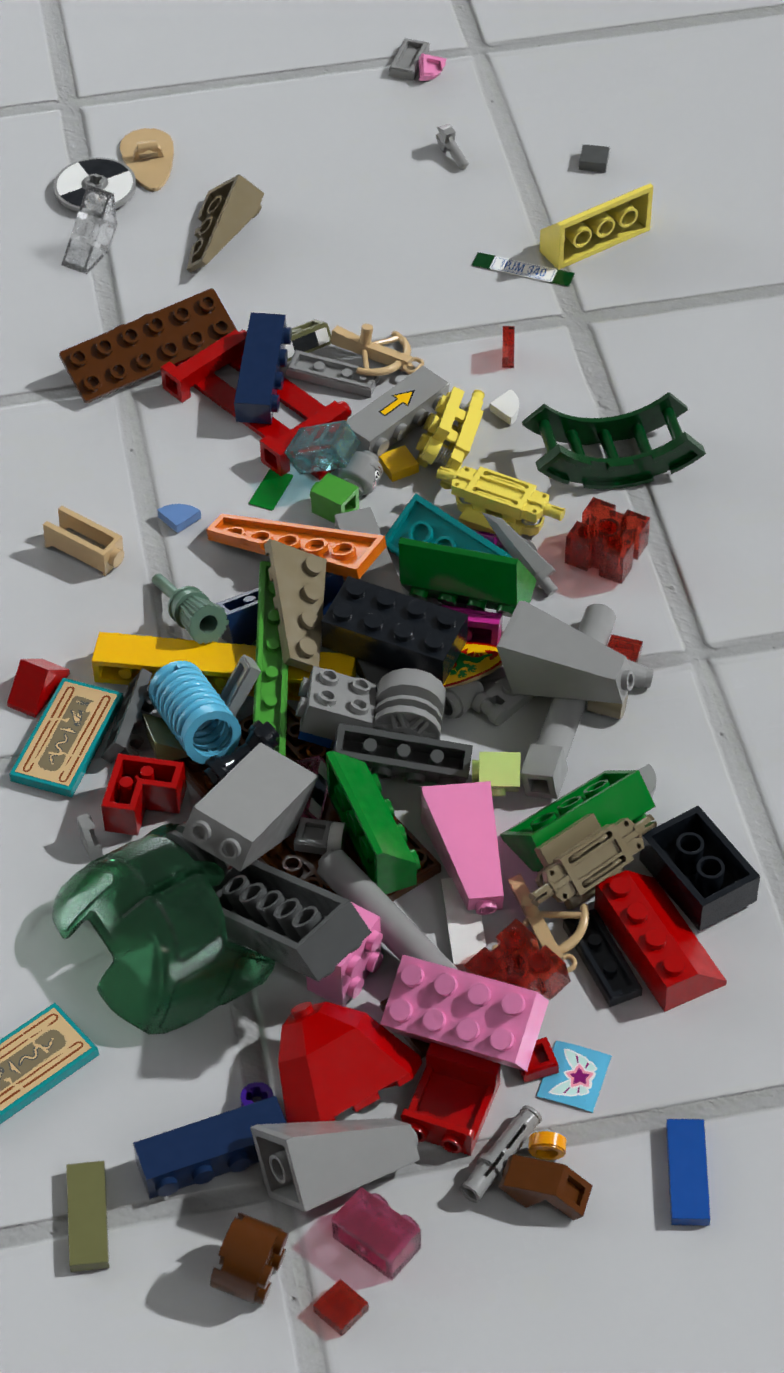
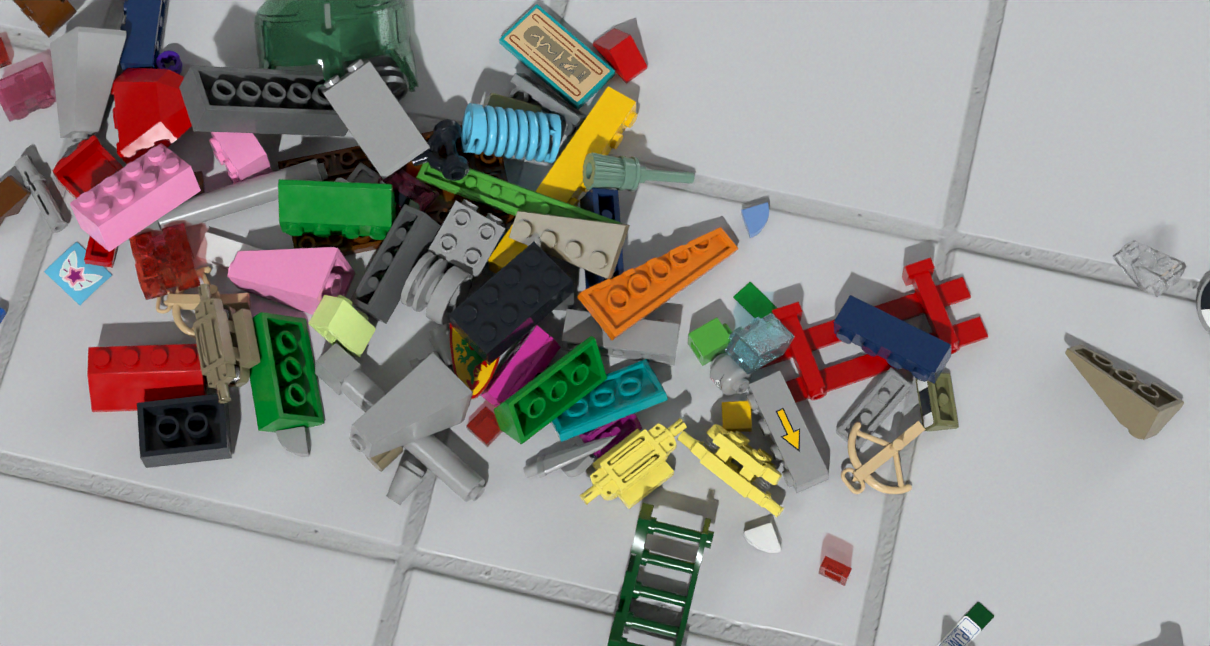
camera: 115 degrees right, 20 degrees up
(85, 540) = (752, 132): tan window -> none
(88, 837) = (447, 36): light grey tile -> none
(140, 785) = (468, 76): red brick -> none
(146, 344) = (972, 264): reddish brown bracket -> none
(240, 683) = (523, 175): light grey tile -> none
(547, 1145) = (28, 223): light orange tile -> none
(604, 961) = (151, 333): black tile -> none
(607, 540) = (549, 513): clear red brick -> none
(628, 647) = (432, 493): clear red tile -> none

